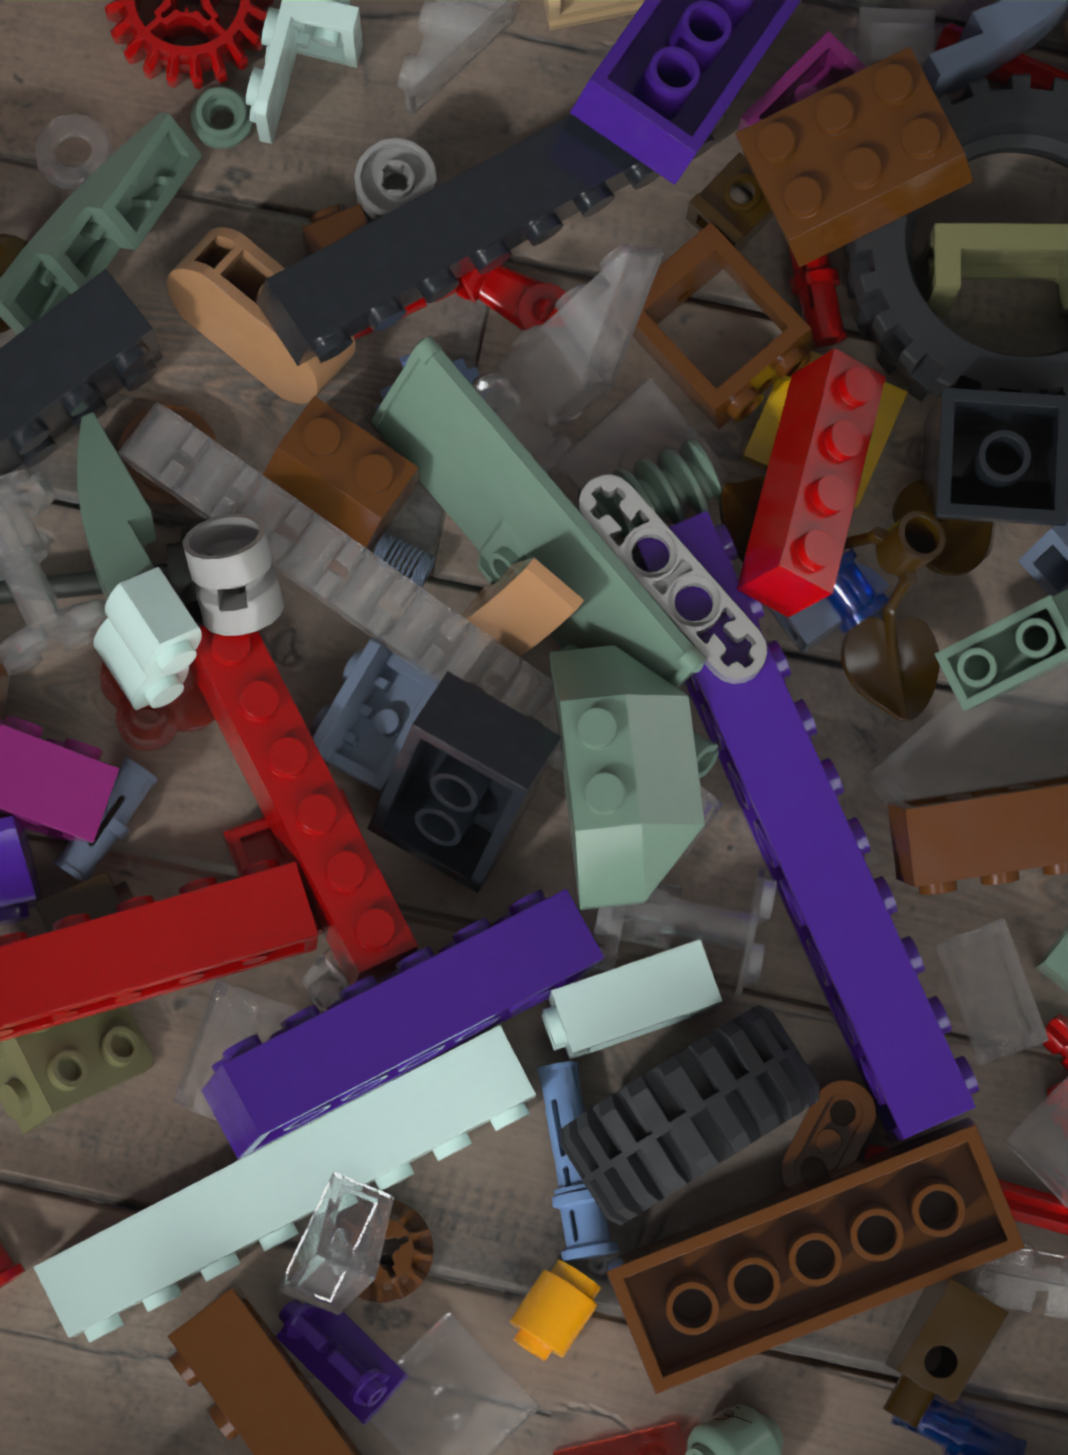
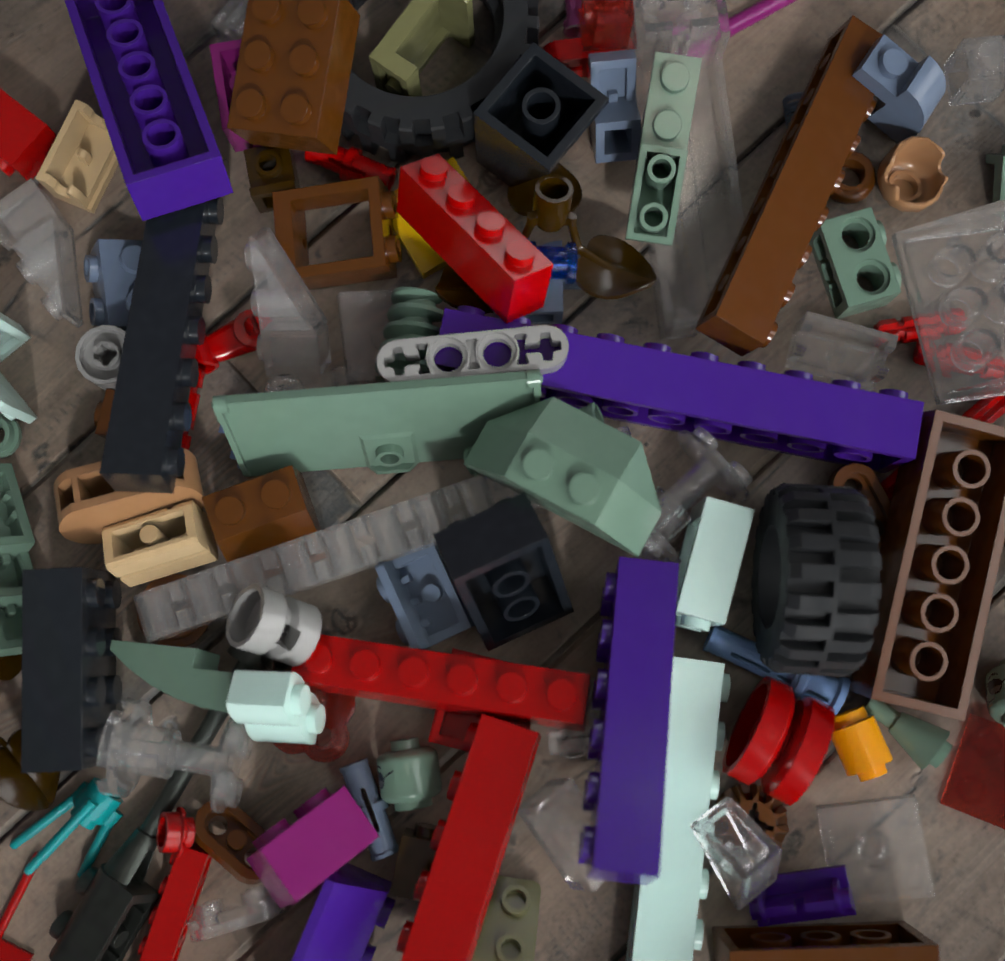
camera: 45 degrees left, 0 degrees up
(173, 837) = (409, 774): none -> sand green head
(231, 387) = (159, 544): none -> tan brick
(424, 564) = (352, 504): sand blue piece -> none
(487, 119) = (113, 272): none -> sand blue bracket
(492, 1208) = (779, 741): none -> red wheel
(523, 606) = (422, 458): medium nougat slope -> none
(607, 1374) = (919, 738): none -> sand green cone

